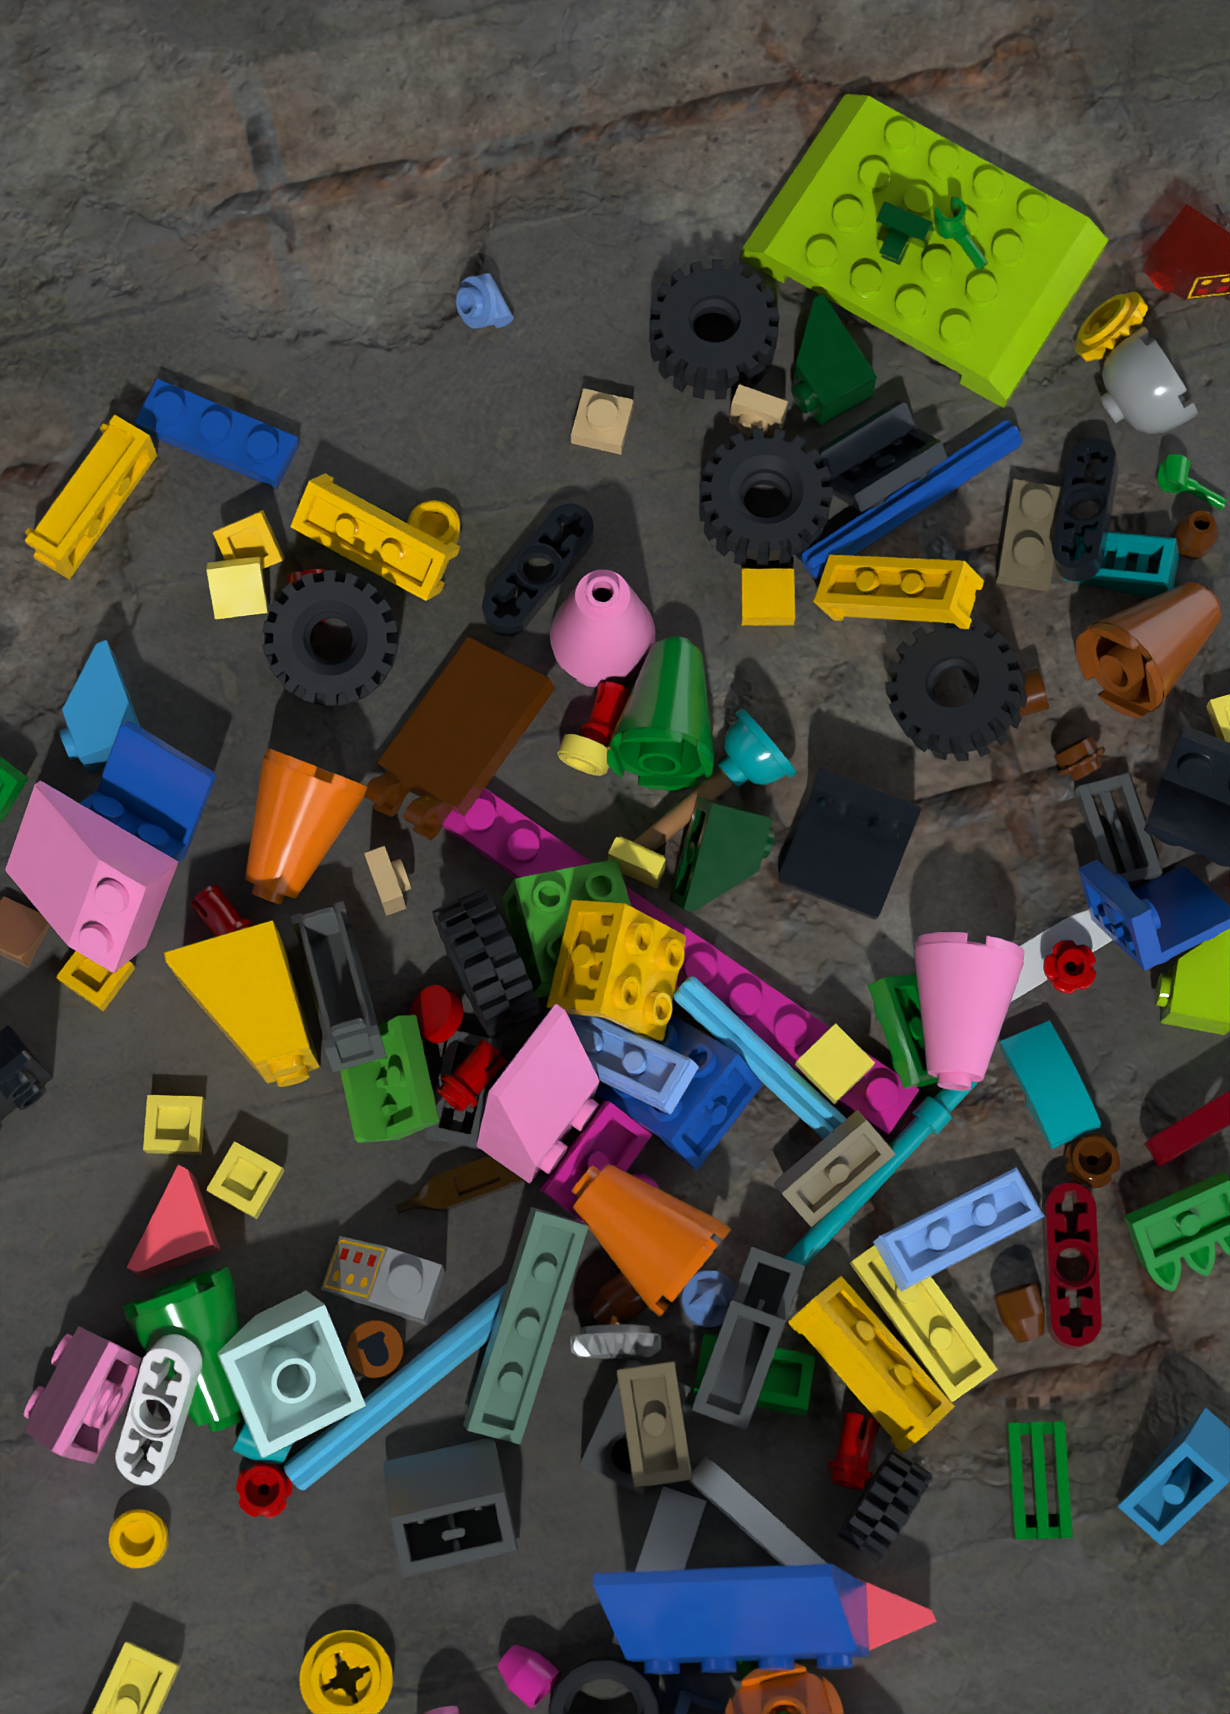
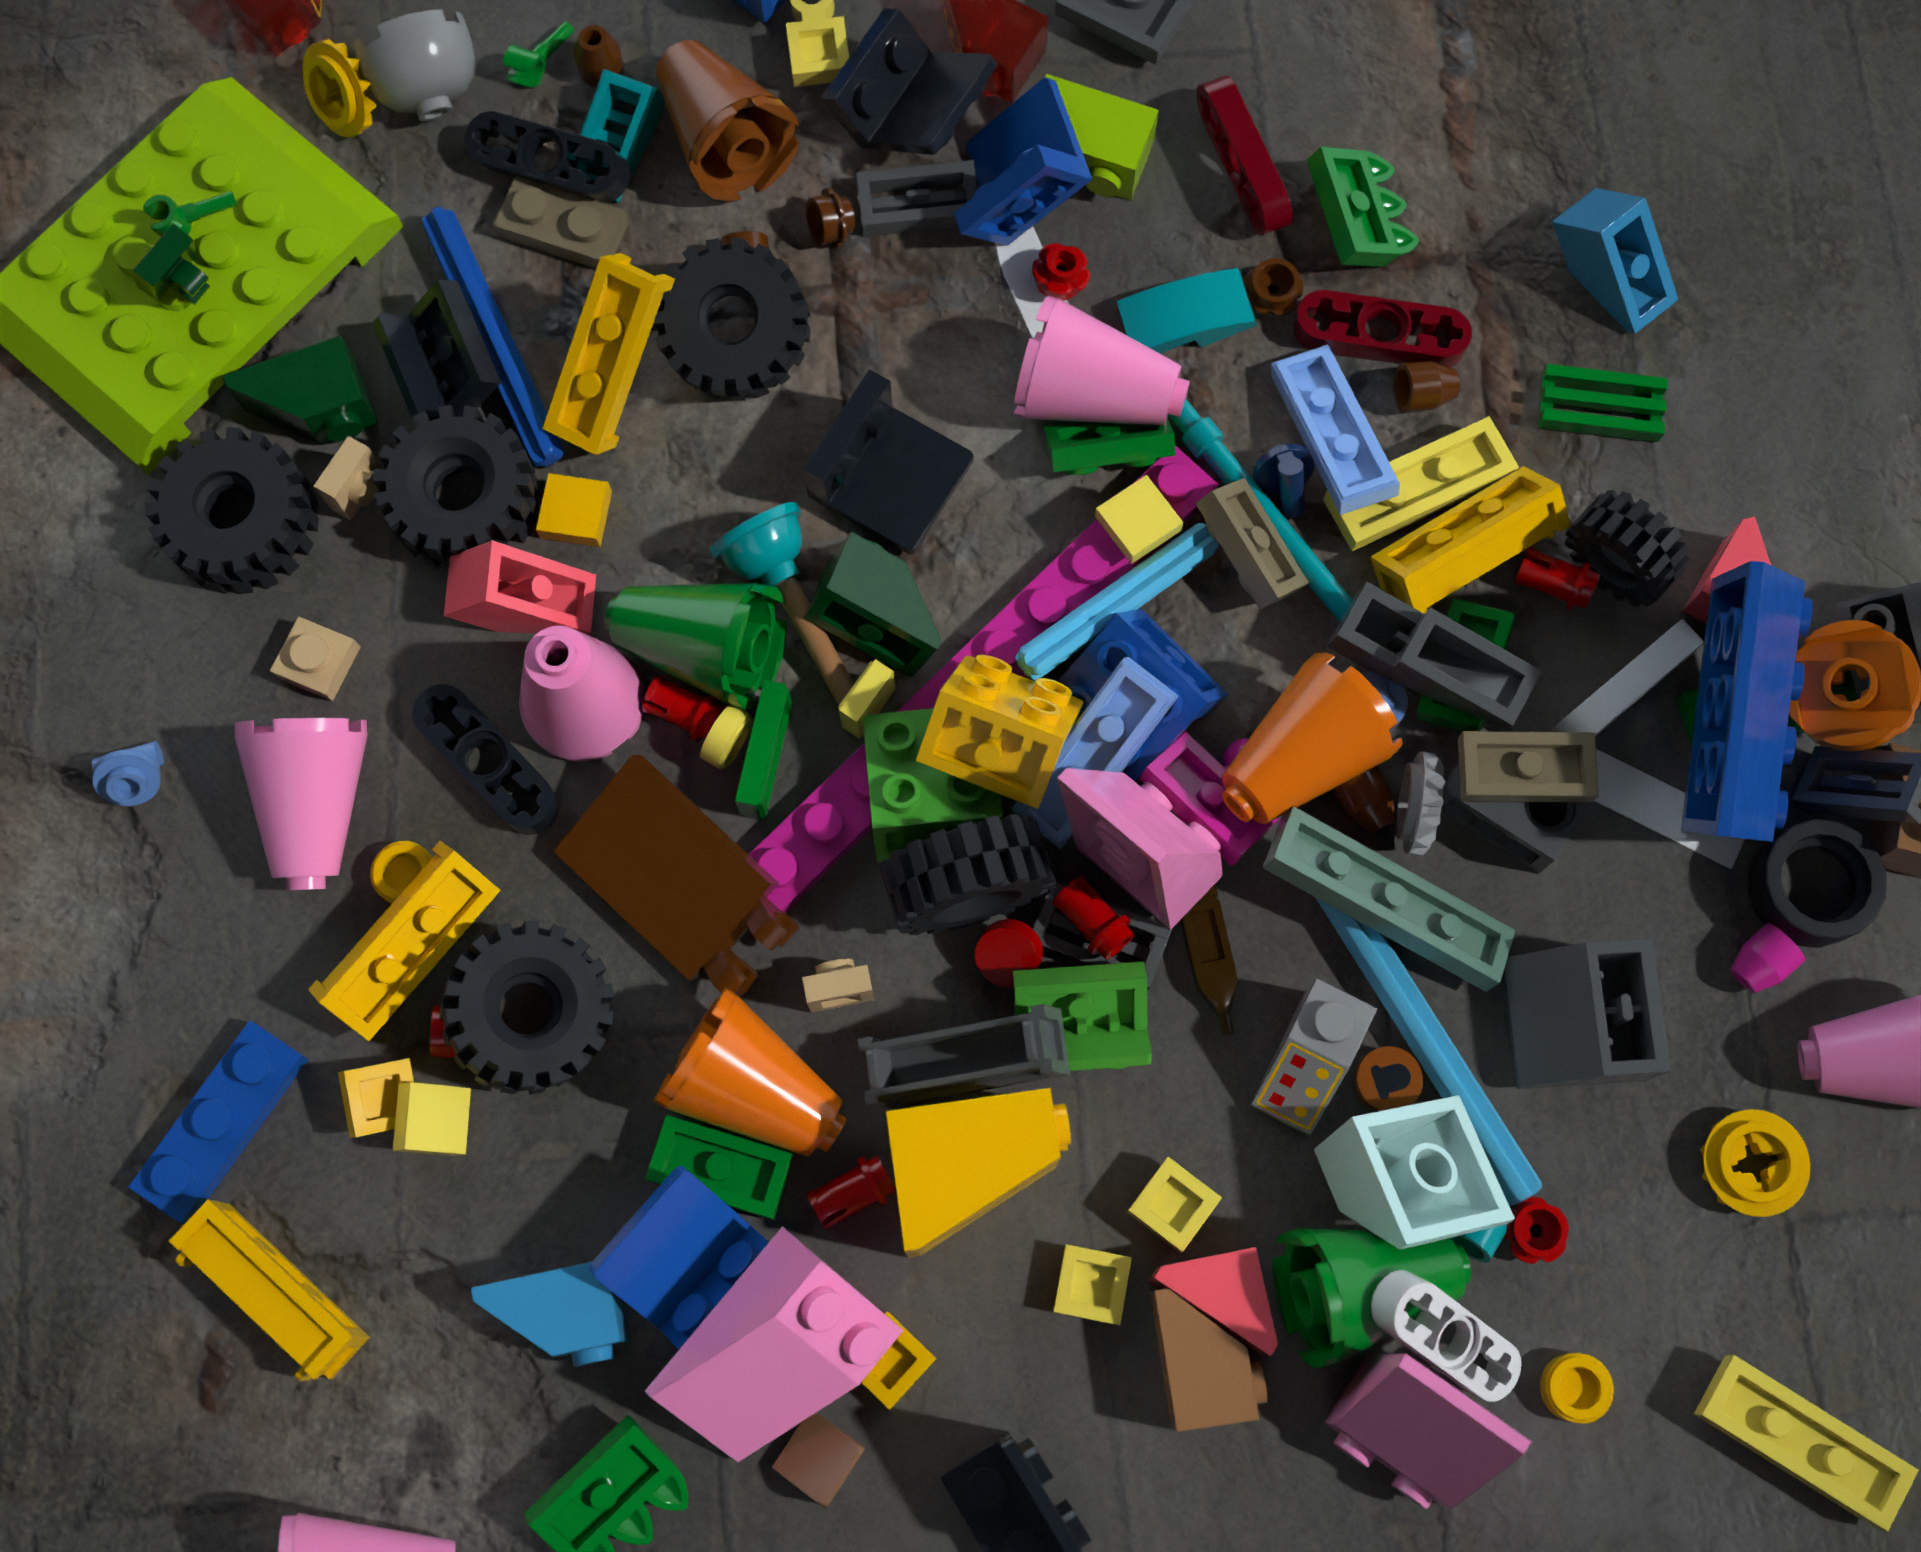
camera: 80 degrees left, 0 degrees up
(111, 1219) = (1203, 1368): none -> medium nougat slope
(228, 815) = (732, 1167): none -> green plate
(482, 433) = (302, 792): none -> bright pink cone
(577, 786) = (764, 750): none -> green tile
(682, 567) = (517, 591): none -> coral slope
(911, 1190) = (1284, 472): none -> dark blue plate

